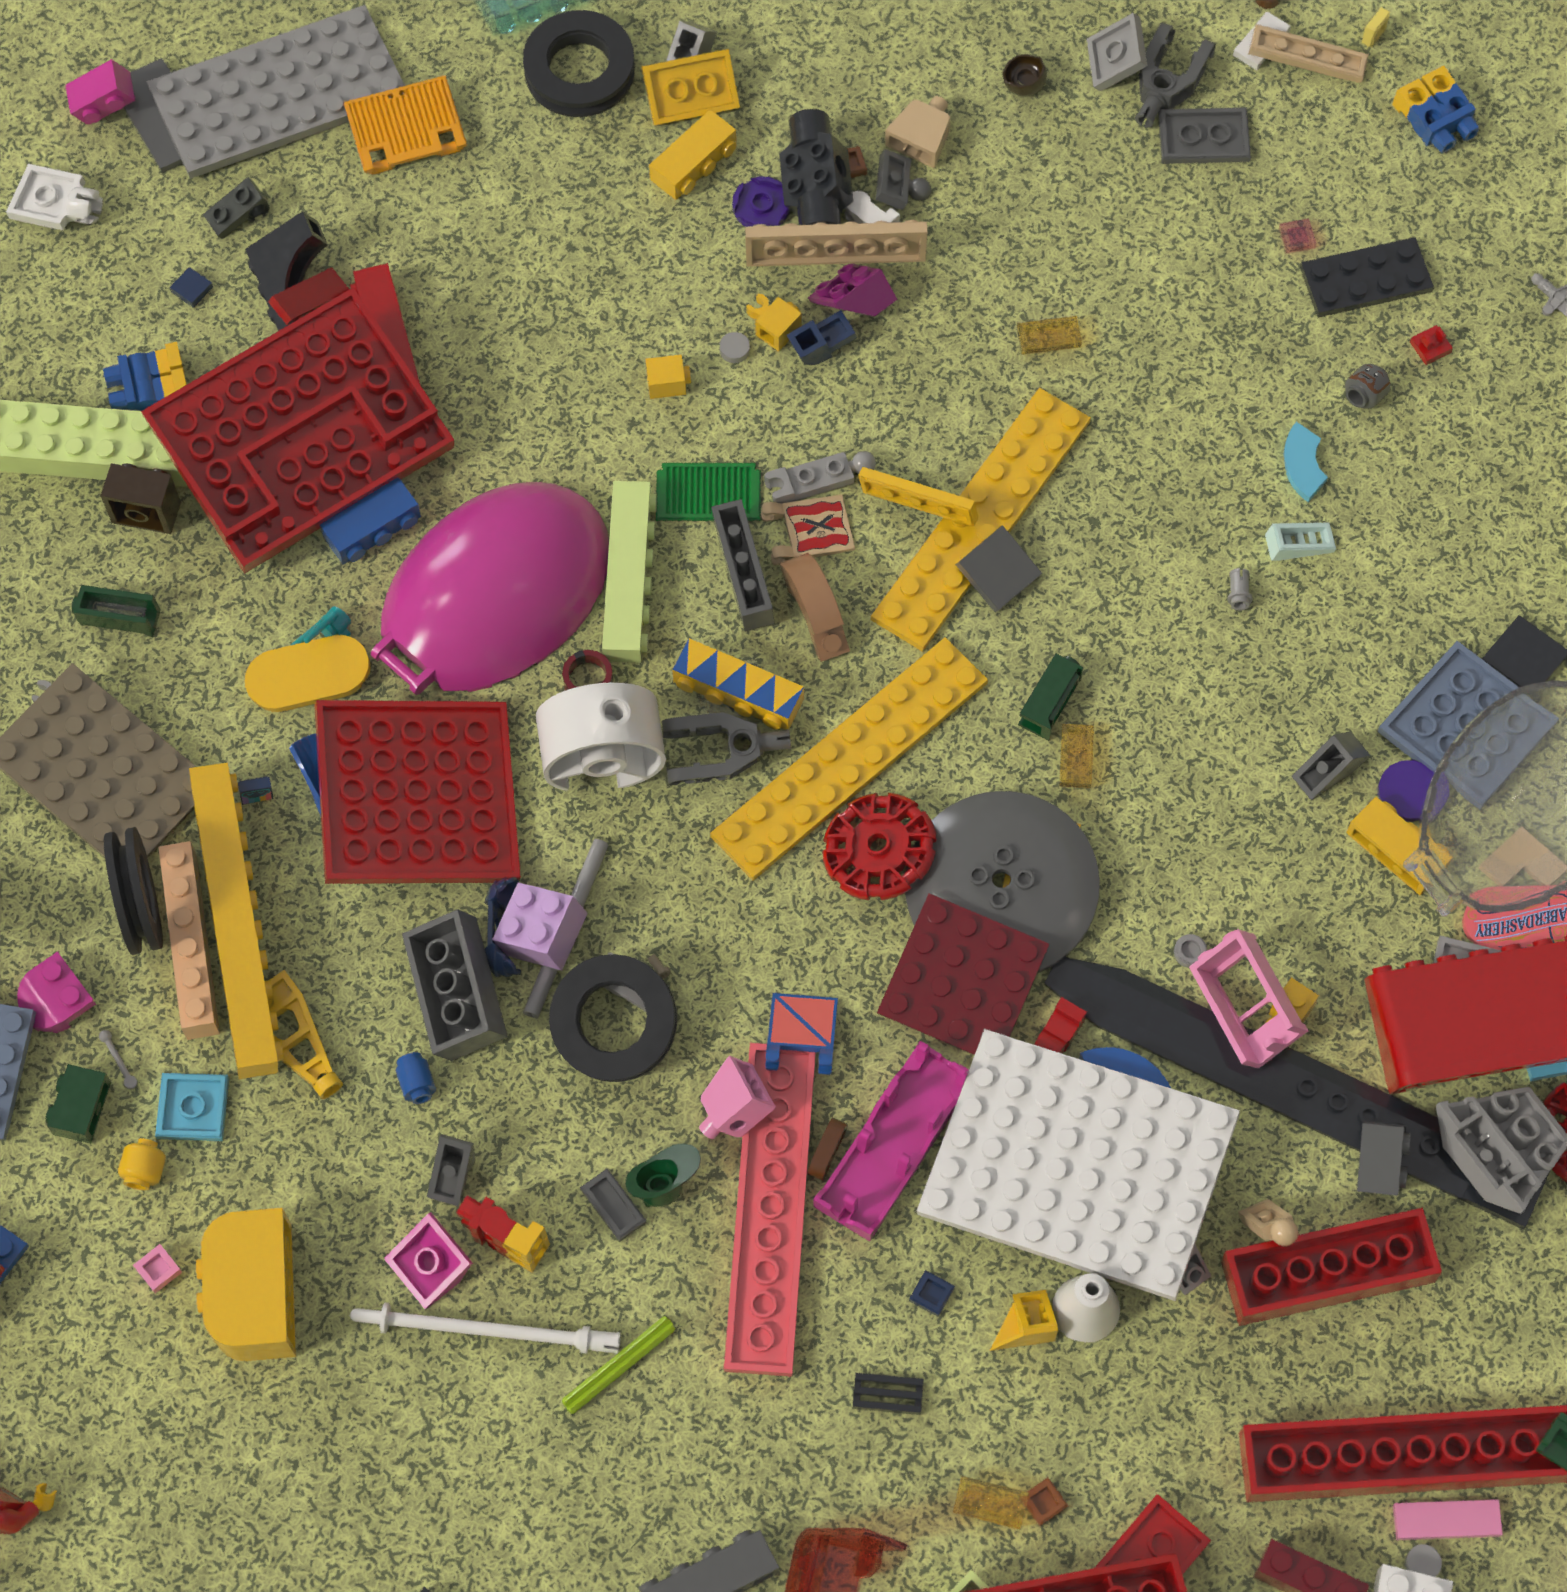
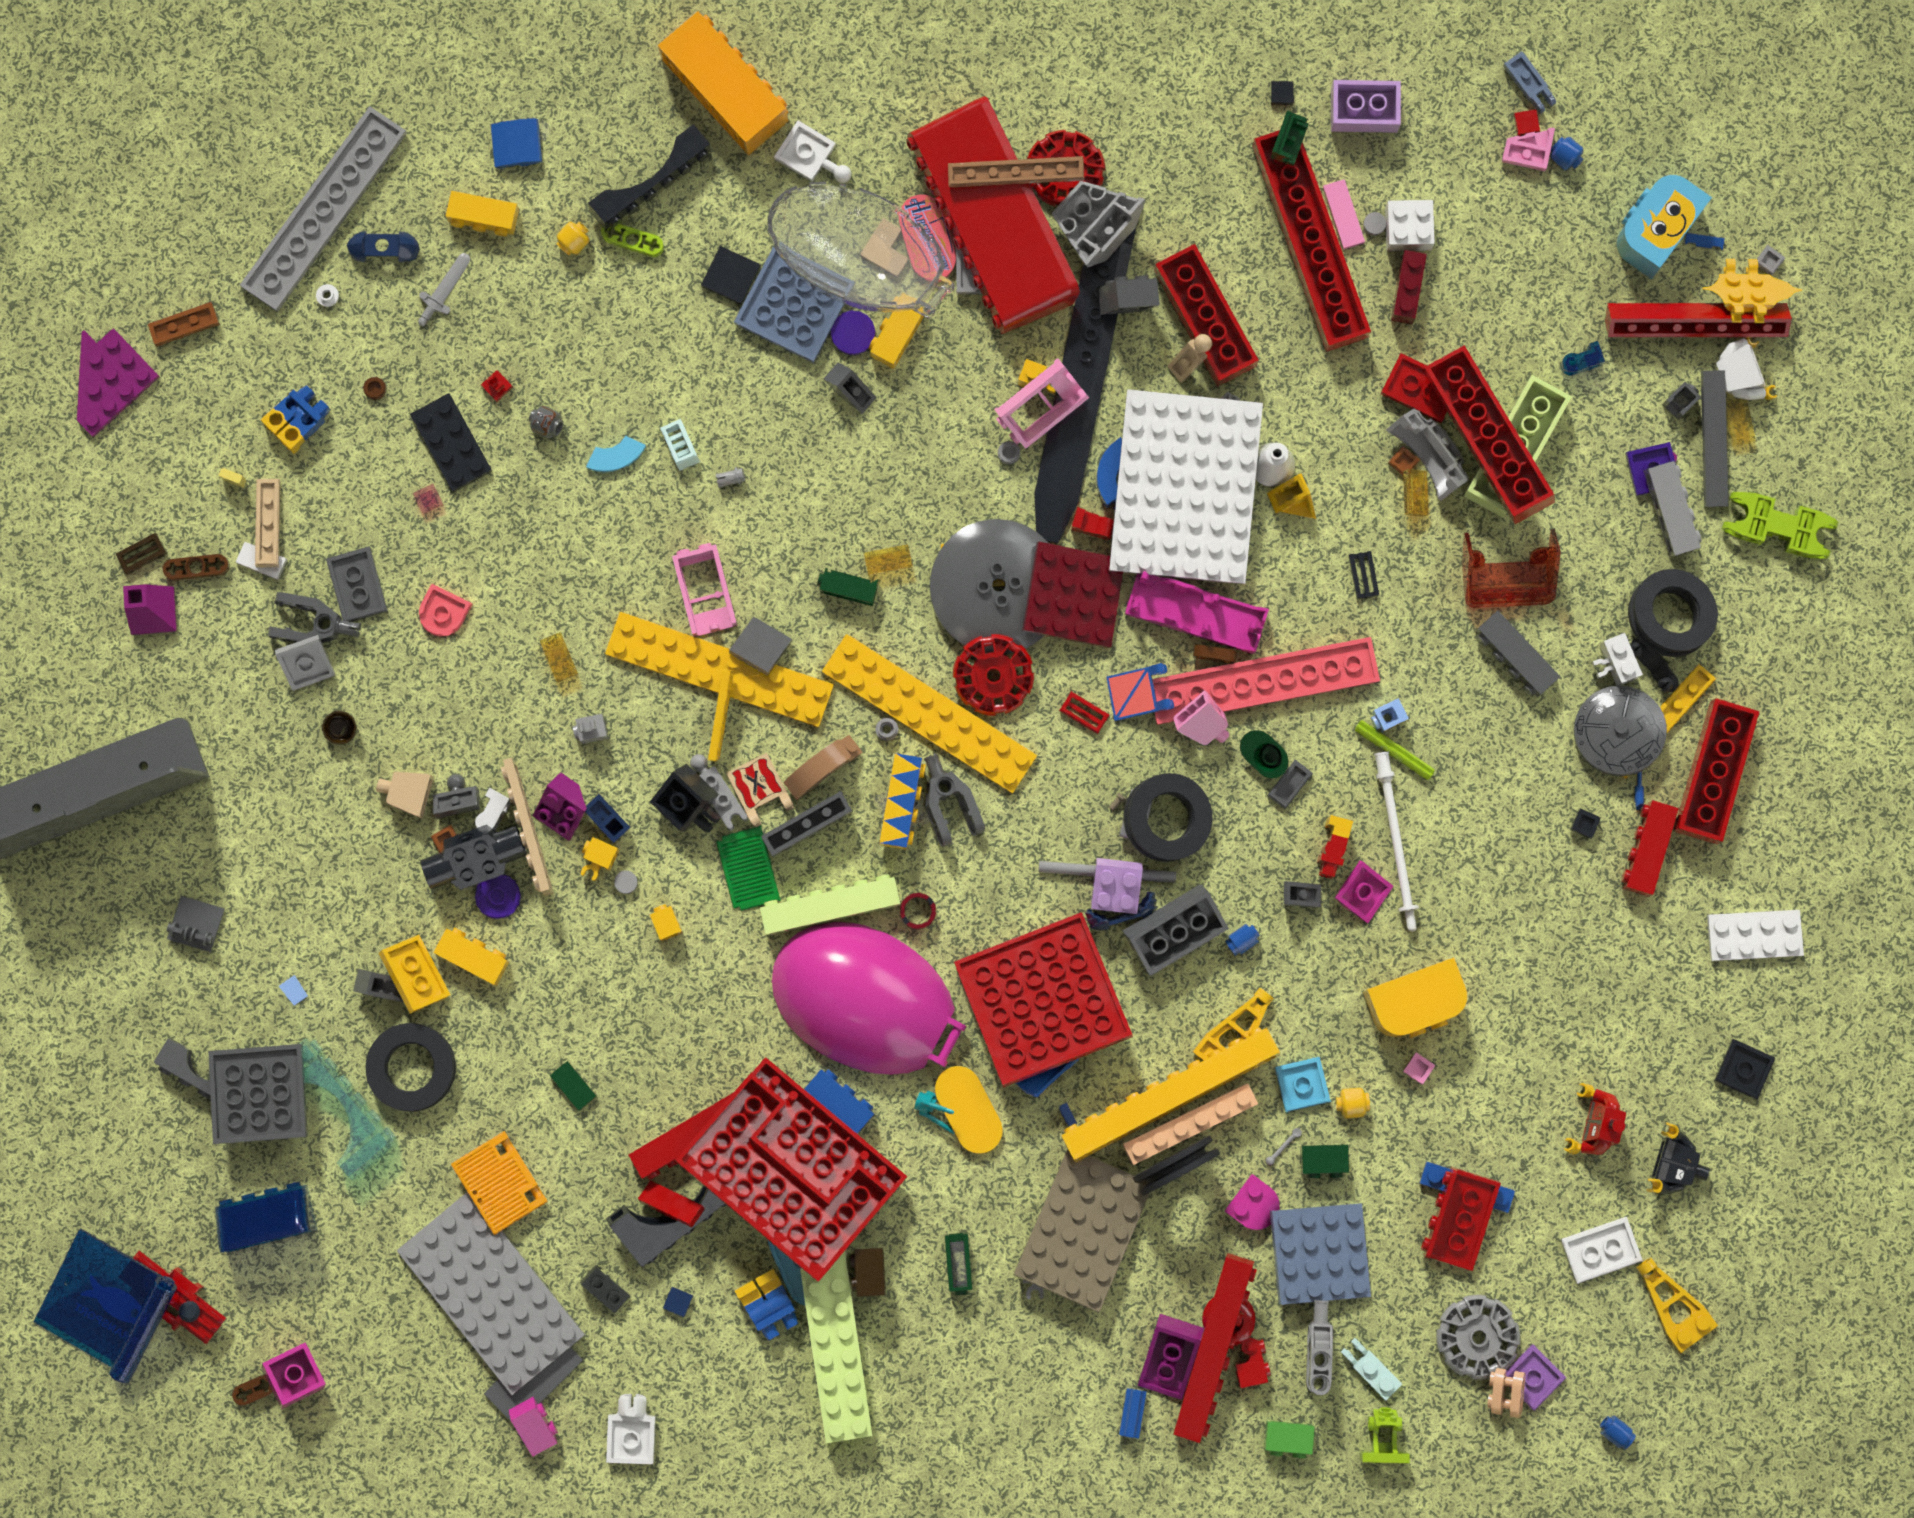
camera: 105 degrees left, 15 degrees up
(497, 233) = (573, 1085): none -> dark green tile
(601, 734) = (976, 879): white animal -> none
(670, 1382) = (1396, 712): none -> light blue brick
(775, 975) = (1100, 722): none -> red tile
(816, 428) = (687, 800): none -> black hinge
(843, 690) = (887, 722): none -> light grey plate
(931, 1293) = (1290, 563): dark blue tile -> none
(944, 347) = (590, 729): none -> light grey brick
(1050, 525) = (711, 620): none -> bright pink door
(1057, 1549) = (1434, 449): none -> light grey windscreen
(1144, 221) = (442, 611): none -> coral tile
(1458, 208) = (374, 388): none -> reddish brown tile

